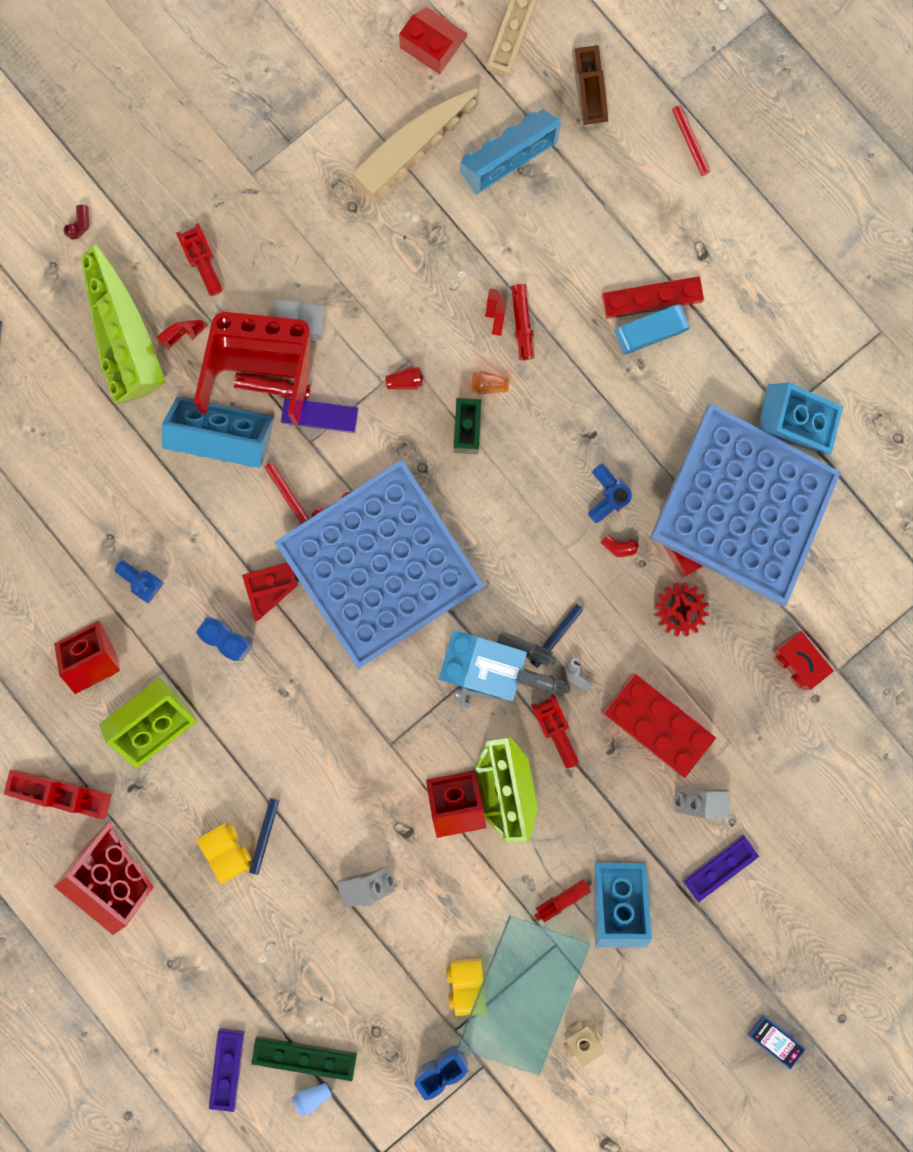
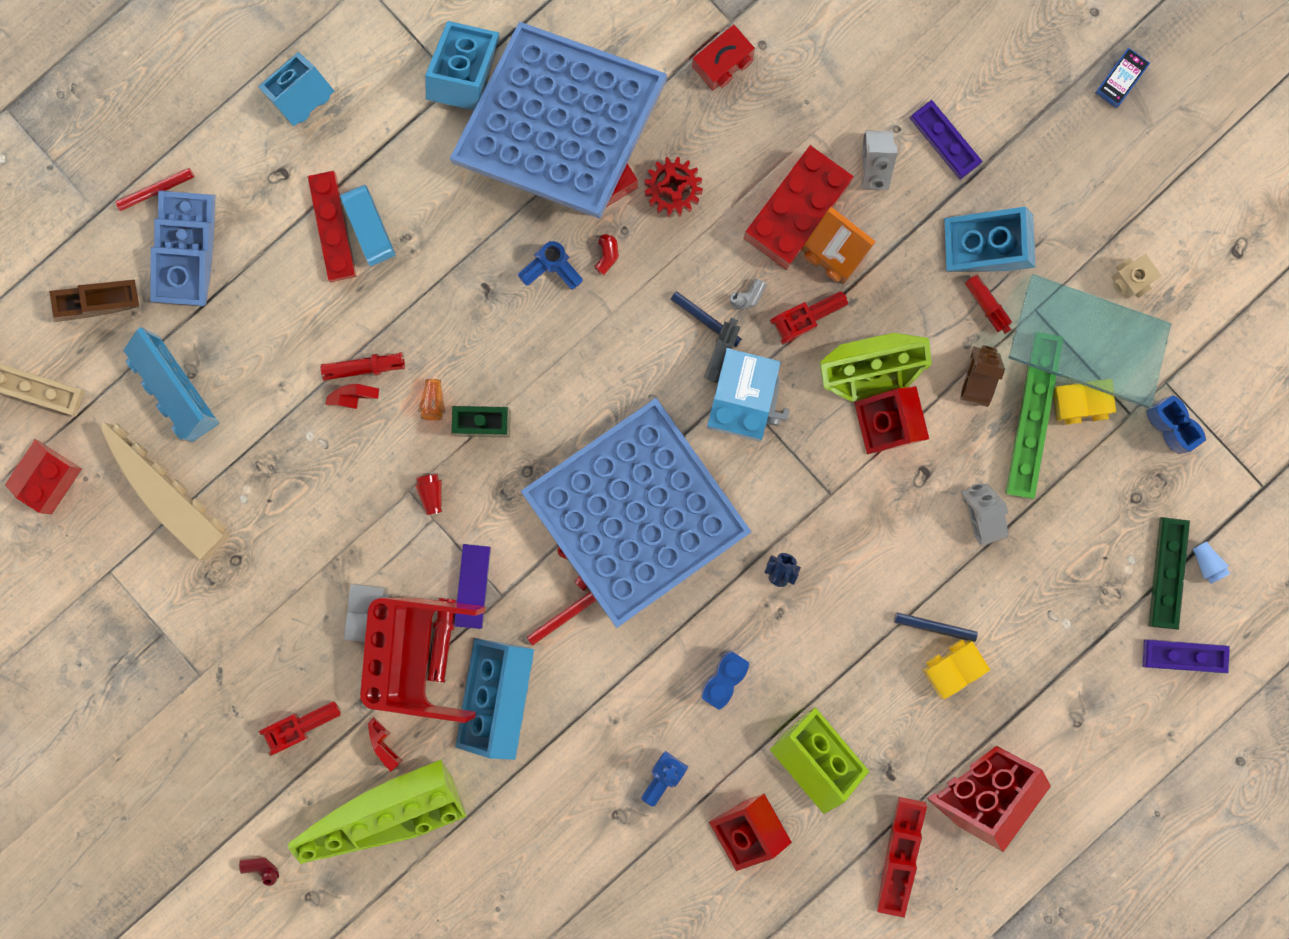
camera: 90 degrees left, 0 degrees up
(268, 587) = (665, 633): red wing -> none
(321, 696) = (782, 570): none -> dark blue gear
(438, 934) = (1030, 433): none -> bright green plate
(494, 891) = (982, 376): none -> reddish brown pin
(542, 682) = (758, 330): dark grey piece -> none
(618, 758) = (837, 246): none -> orange slope
(636, 164) = (182, 248): none -> medium blue slope
(780, 267) = (296, 89): none -> dark azure slope

